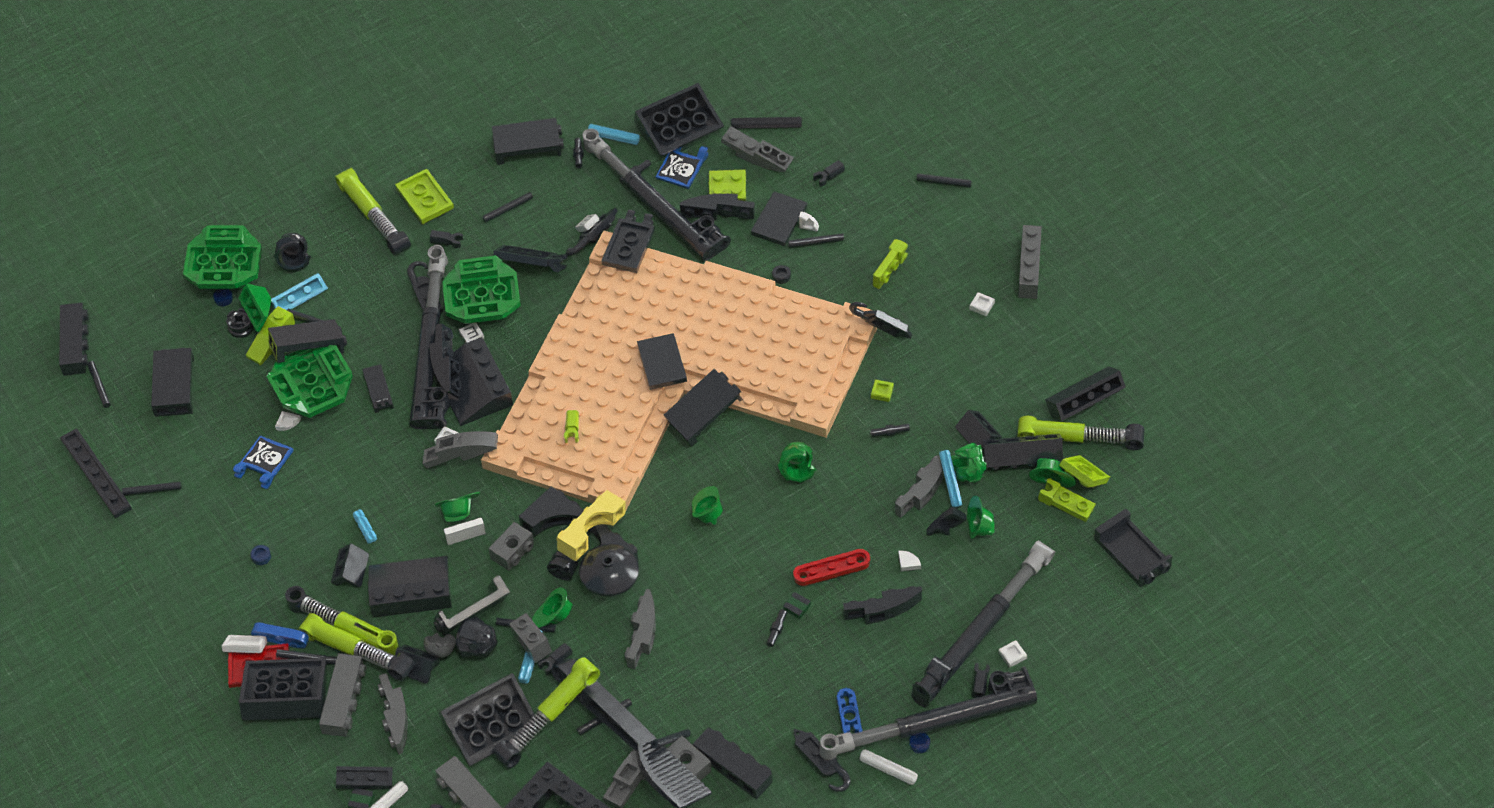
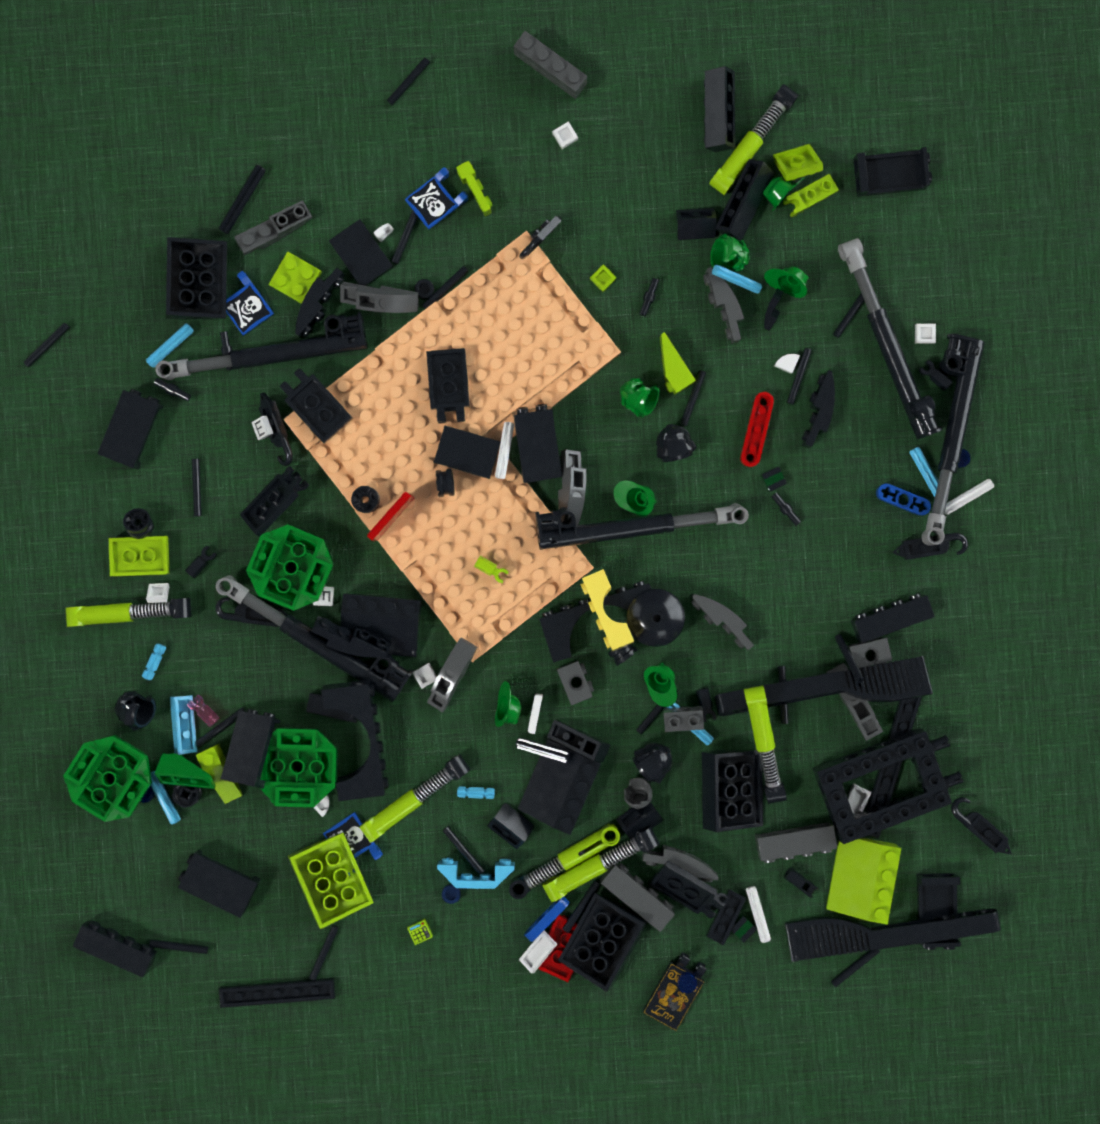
camera: 65 degrees left, 35 degrees up
(211, 548) = (420, 931): none -> lime tile
(217, 451) = (326, 882): none -> lime slope
(222, 314) = (164, 800): none -> medium azure axle
(267, 776) = (667, 1001): none -> black tile
(282, 774) = (687, 982): none -> clear blue tile
(290, 466) = (411, 800): none -> piece
(302, 577) = (450, 870): none -> medium azure slope
(306, 544) = (463, 850): none -> black piece
(318, 301) = (203, 711): none -> clear pink bar
(333, 438) = (357, 699): none -> black arch
(342, 248) = (153, 661): none -> medium azure axle
(372, 727) = (687, 890): none -> black tile
(401, 222) = (157, 593): none -> white tile
(434, 550) = (542, 749): none -> axle
(451, 180) = (131, 522): none -> black wheel
(460, 578) = (579, 741): none -> black slope
(499, 593) = (626, 751): panel -> none
(559, 60) = (46, 344): none -> black piece
(568, 308) = (357, 498): none -> black wheel
(569, 329) = (390, 517): none -> red tile
(624, 355) = (445, 483): none -> black wheel
(635, 457) = (557, 533): none -> black piece
(678, 386) = (504, 450): none -> white axle
(681, 455) = (573, 484): none -> dark grey slope
(710, 319) = (448, 382): none -> black tile
(750, 245) = (379, 300): none -> dark grey slope
(775, 506) = (674, 443): none -> black helmet
(798, 288) = (445, 287): none -> black piece
(825, 507) = (693, 397): none -> black piece
(829, 173) = (337, 177): black bar -> none
(841, 476) = (675, 370): none -> lime slope
(859, 243) = (433, 202): none -> flag
(889, 718) = (925, 469): none -> medium azure axle
(902, 576) = (799, 376): none -> black piece
(982, 586) = (848, 317): none -> black piece

